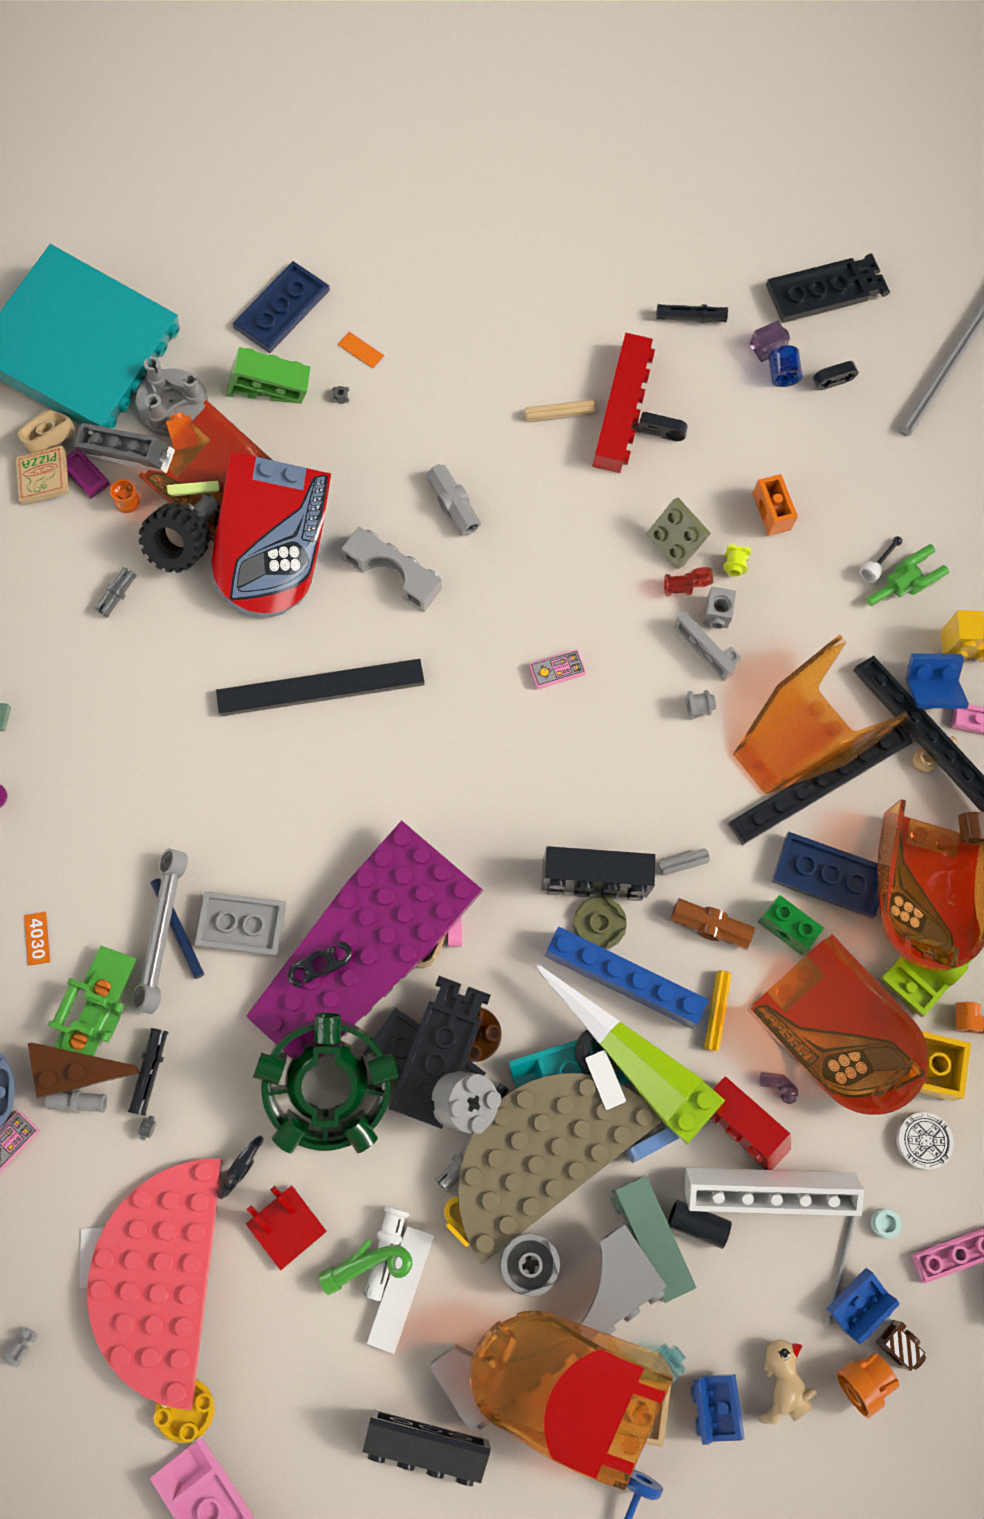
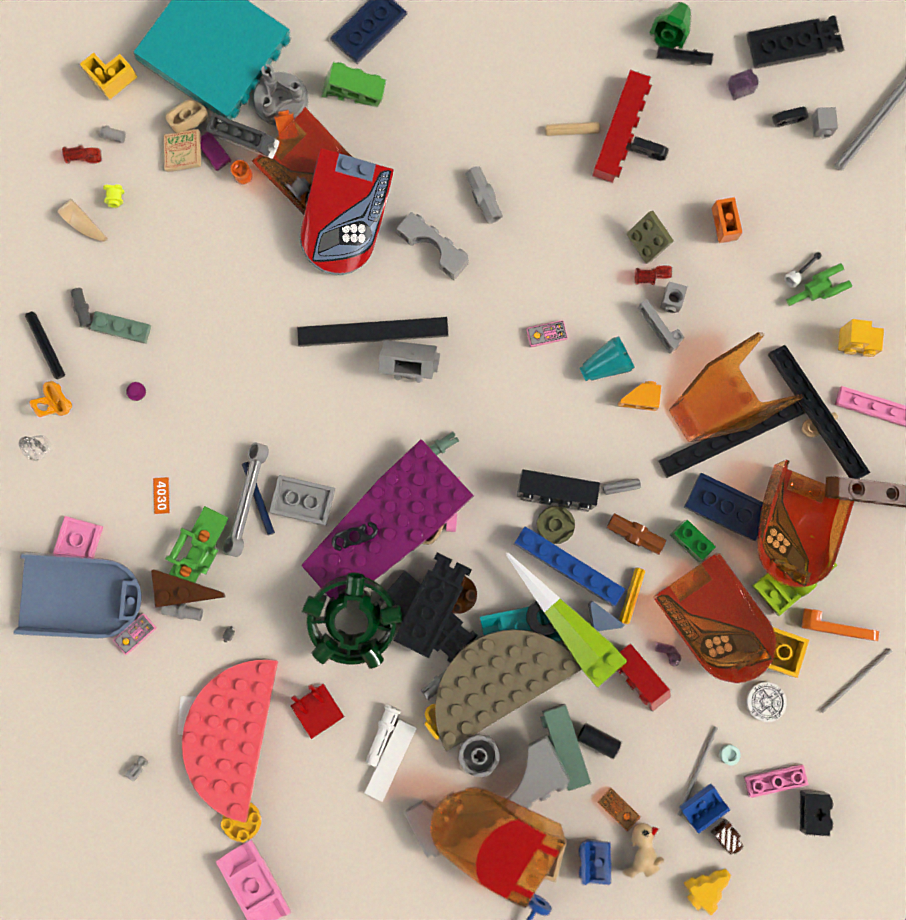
camera: 15 degrees right, 10 degrees up
(115, 592) = (230, 246): dark grey pin -> none
(148, 1071) = (231, 596): black pin -> none
(161, 549) = (266, 218): black tyre -> none
(194, 488) = (292, 171): yellowish green tile -> none
(240, 1167) = (289, 667): black piece -> none
(340, 394) = (407, 102): dark grey piece -> none
(360, 1262) = (365, 740): bright green plant -> none
(361, 349) = (426, 66): orange sticker -> none
(373, 718) = (408, 360): none -> light grey piece
(426, 1447) = (398, 863): black slope -> none
(430, 829) = (441, 445): none -> sand green pin
(465, 1102) = (446, 643): light grey brick -> none
(605, 1080) = (545, 637): white sticker -> none
(644, 696) = (607, 361): none -> teal cone
(651, 1144) = (572, 683): medium blue beam -> none
(671, 279) = (672, 26): none -> green cone
(673, 1358) = (568, 828): clear light blue gear -> none
(681, 1046) = (601, 619): none -> sand blue slope
(697, 739) = (643, 397): none -> light orange slope
(699, 703) = (649, 370): light grey brick -> none
(736, 560) = (691, 261): neon yellow brick -> none
(740, 1323) = (619, 809): none -> clear orange tile
(773, 1191) = (653, 725): white brick -> none
(785, 366) = (751, 106): clear blue piece -> none
(867, 1383) = (700, 859): orange piece -> none
(879, 378) = (824, 122): none -> light grey brick
(885, 1431) = (706, 890): none -> yellow rock
(935, 681) = (829, 370): blue bracket -> none

